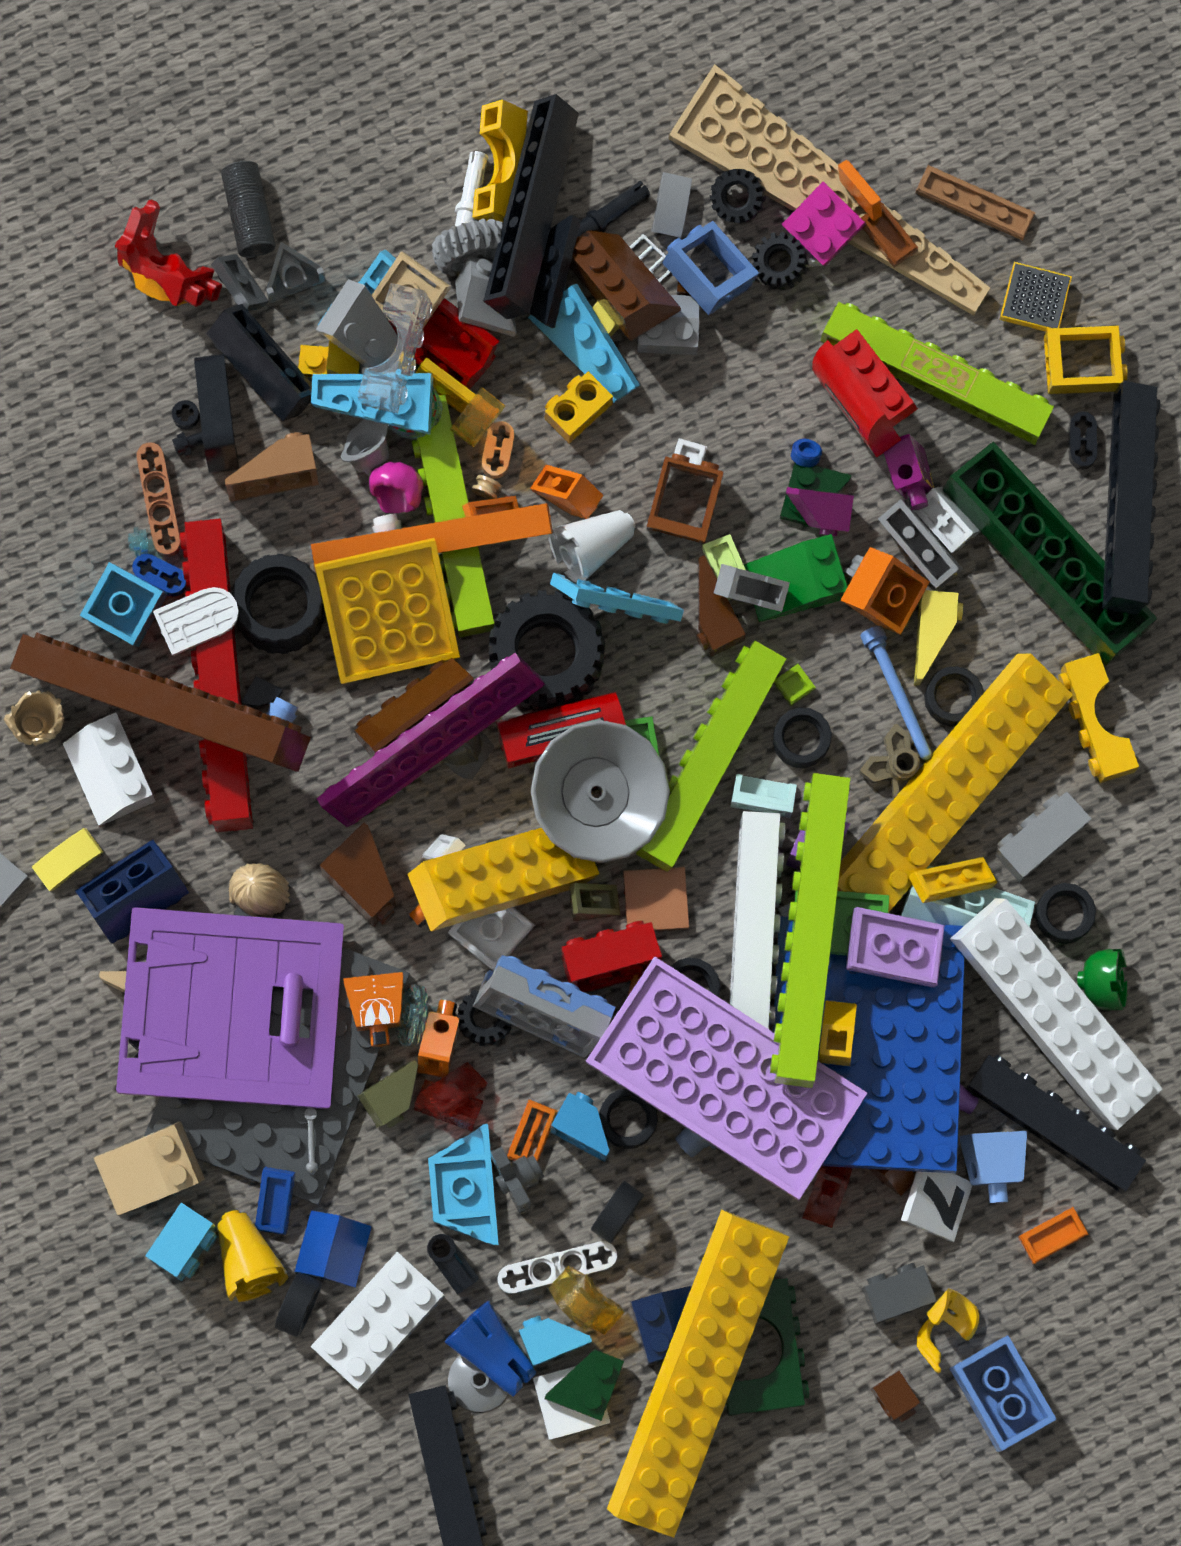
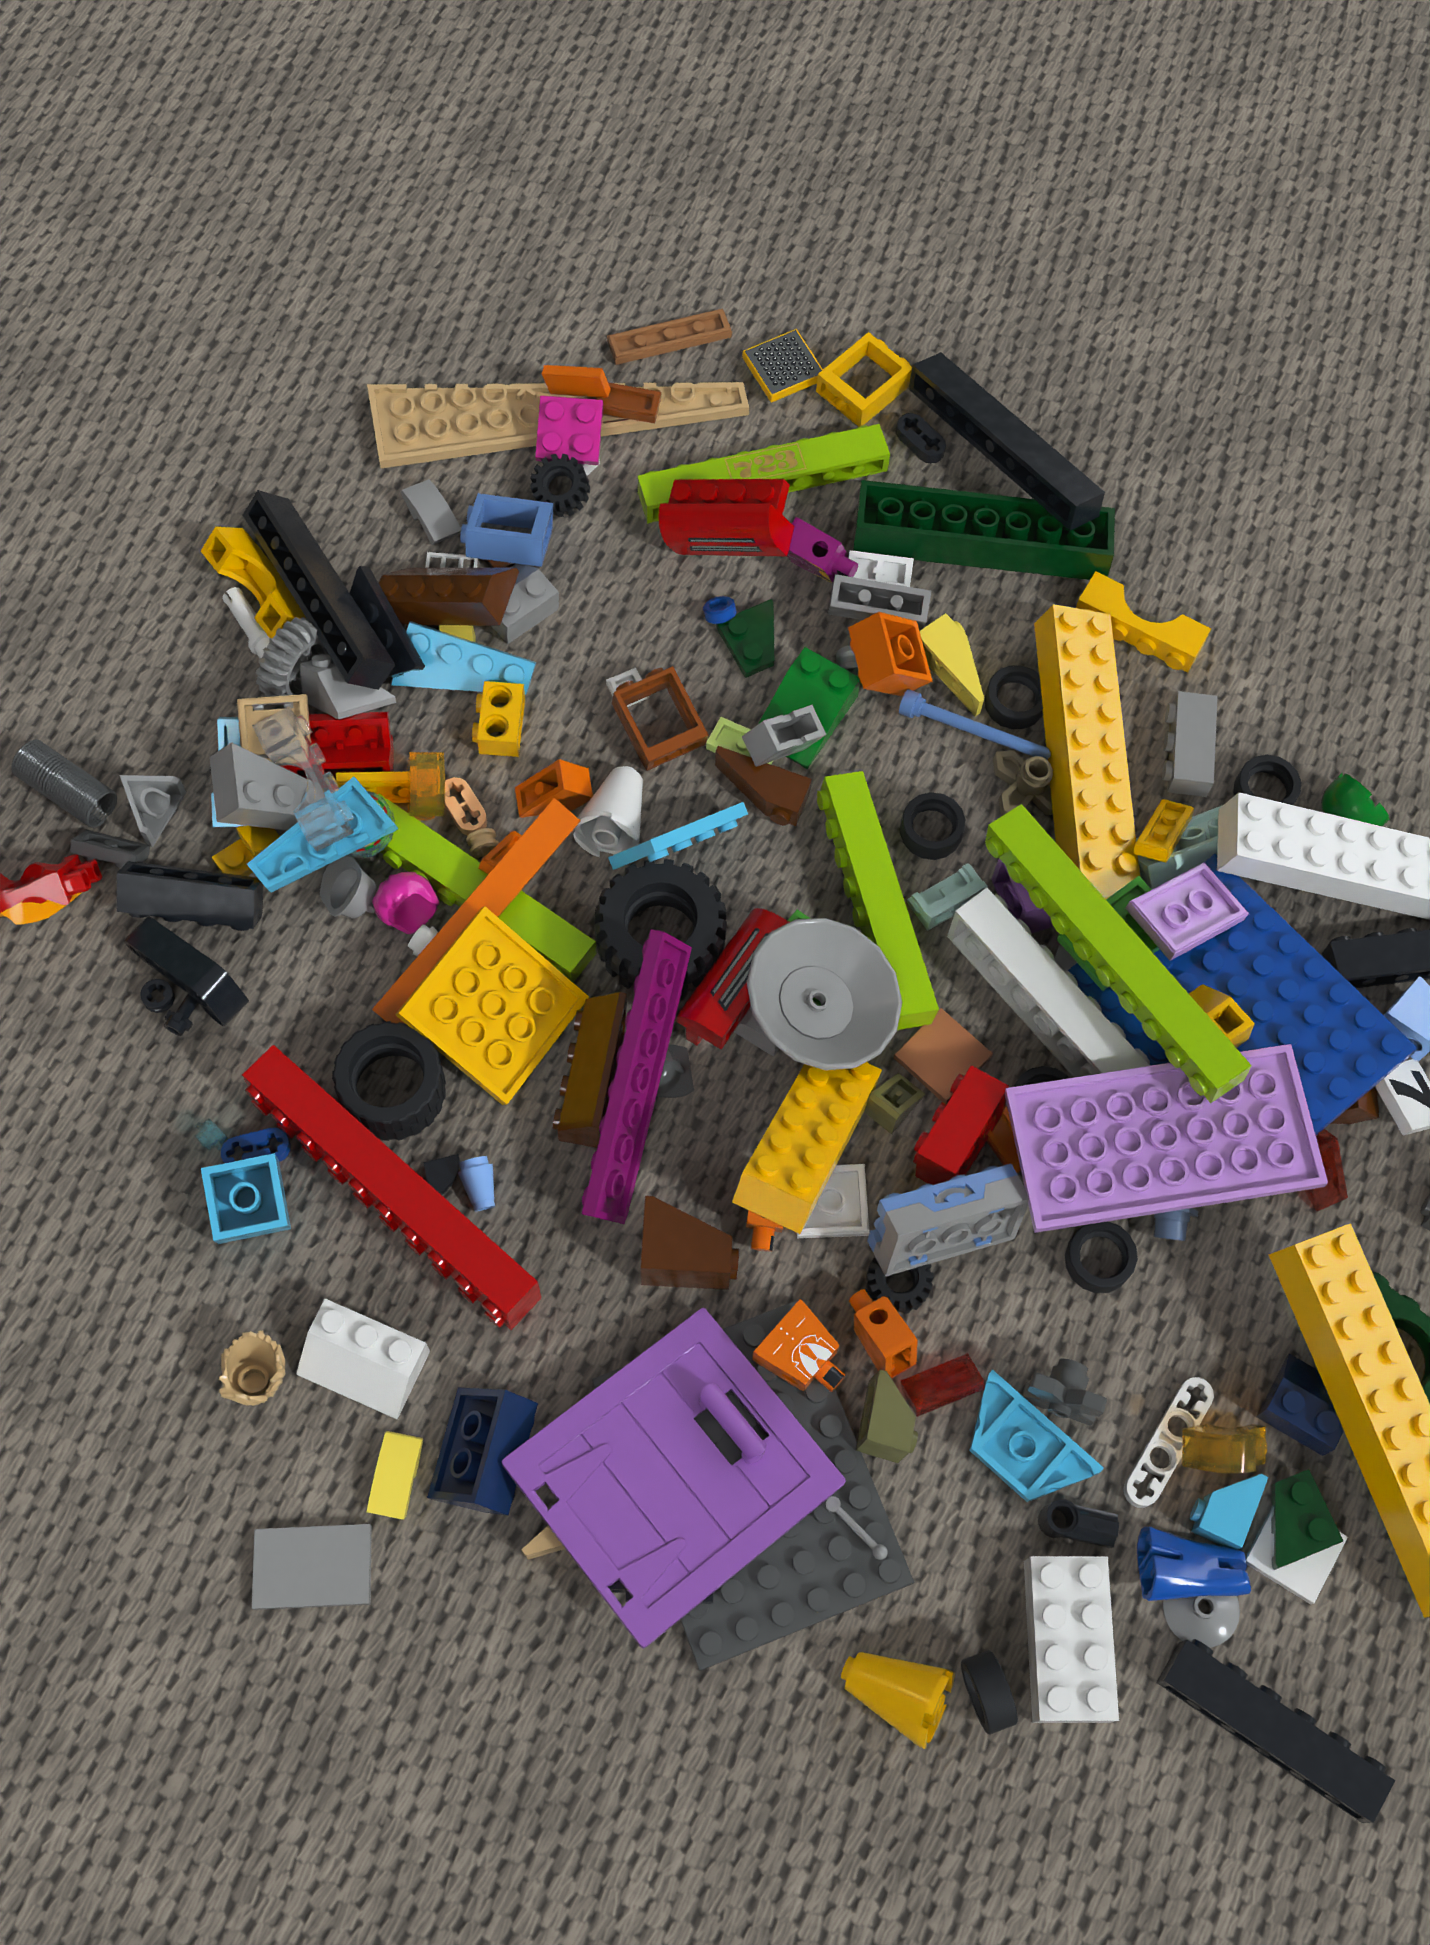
camera: 40 degrees left, 10 degrees down
(149, 1168) = (734, 1695): tan slope -> none
(158, 500) = (197, 1086): nougat beam -> none
(162, 700) = (362, 1246): reddish brown brick -> none
(182, 1242) = (832, 1734): medium azure brick -> none
(197, 618) = (329, 1147): white window -> none
(259, 890) = (598, 1346): tan hair -> none
(275, 1200) = (874, 1614): blue tile -> none
(277, 469) = (288, 965): medium nougat slope -> none
(333, 1248) = (963, 1611): blue slope -> none
(413, 1015) = (846, 1329): clear light blue tile -> none
(443, 846) = (729, 1165): white tile -> none
(453, 1090) = (936, 1367): clear red plate -> none
(541, 1110) = (1019, 1345): orange tile -> none
(581, 1126) = (1076, 1295): dark azure slope -> none
(599, 219) = (387, 545): black pin -> none
(617, 1212) = (1176, 1343): black tyre -> none
(720, 190) = (482, 443): black tyre -> none
(794, 684) = (885, 791): lime tile -> none
(823, 509) = (777, 636): magenta slope -> none

